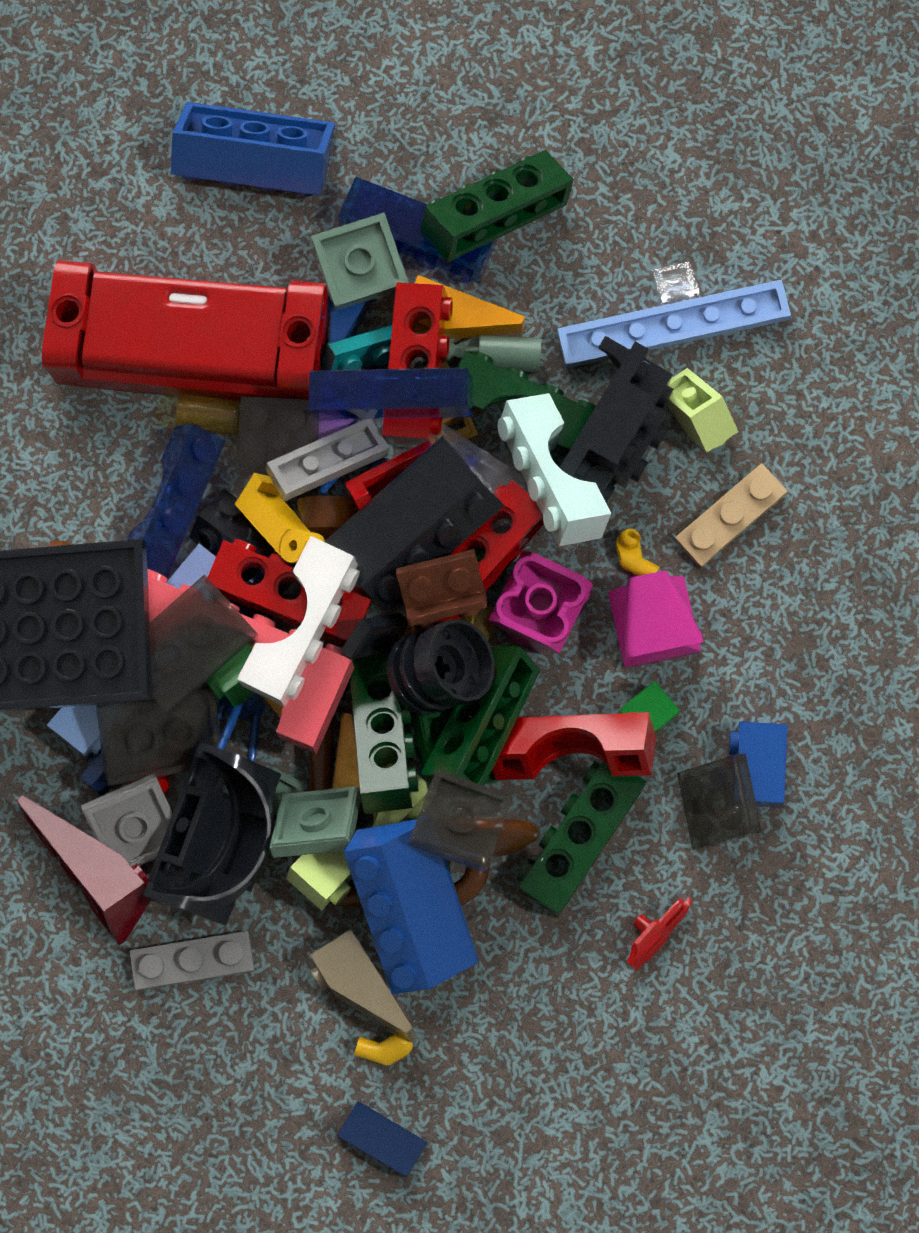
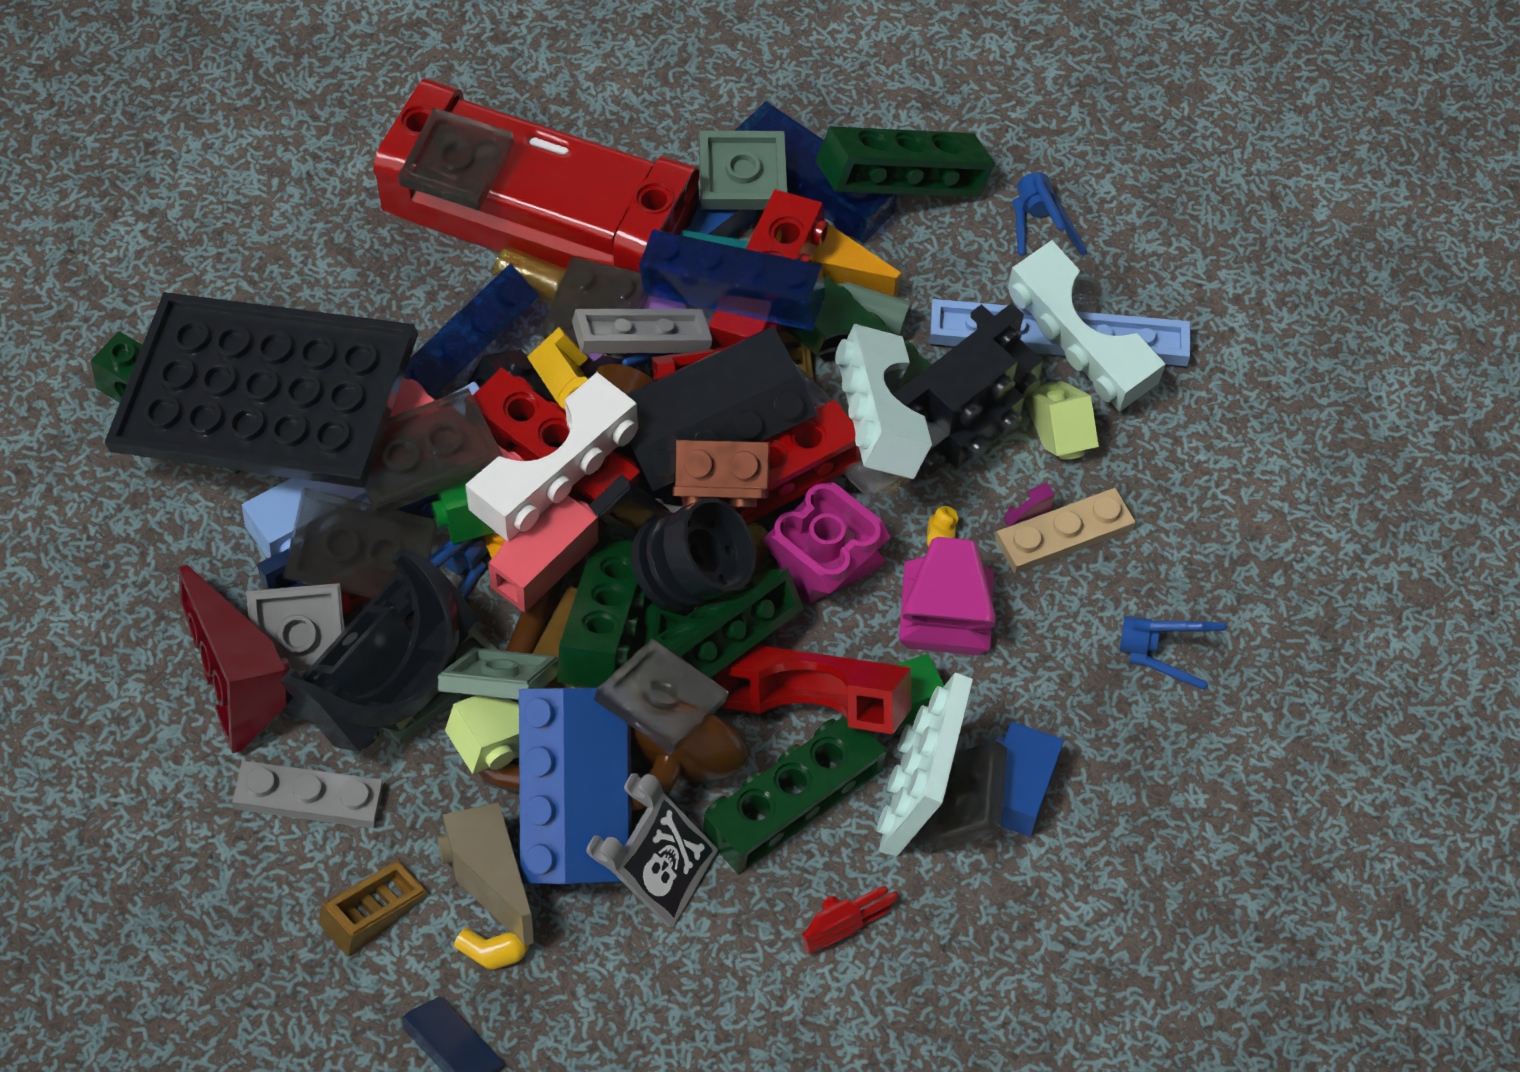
camera: 10 degrees right, 20 degrees down
(114, 344) = (456, 158): none -> clear smoke plate
(252, 149) = (665, 56): blue slope -> none
(258, 1070) = (349, 927): none -> pearl gold slope
(496, 933) = (661, 856): none -> flag
(618, 193) = (1040, 200): none -> blue plant
(684, 792) = (925, 765): none -> light aqua plate
(701, 502) = (1039, 503): none -> magenta tile
(735, 351) = (1117, 365): none -> light aqua arch
(821, 596) = (1143, 634): none -> blue plant

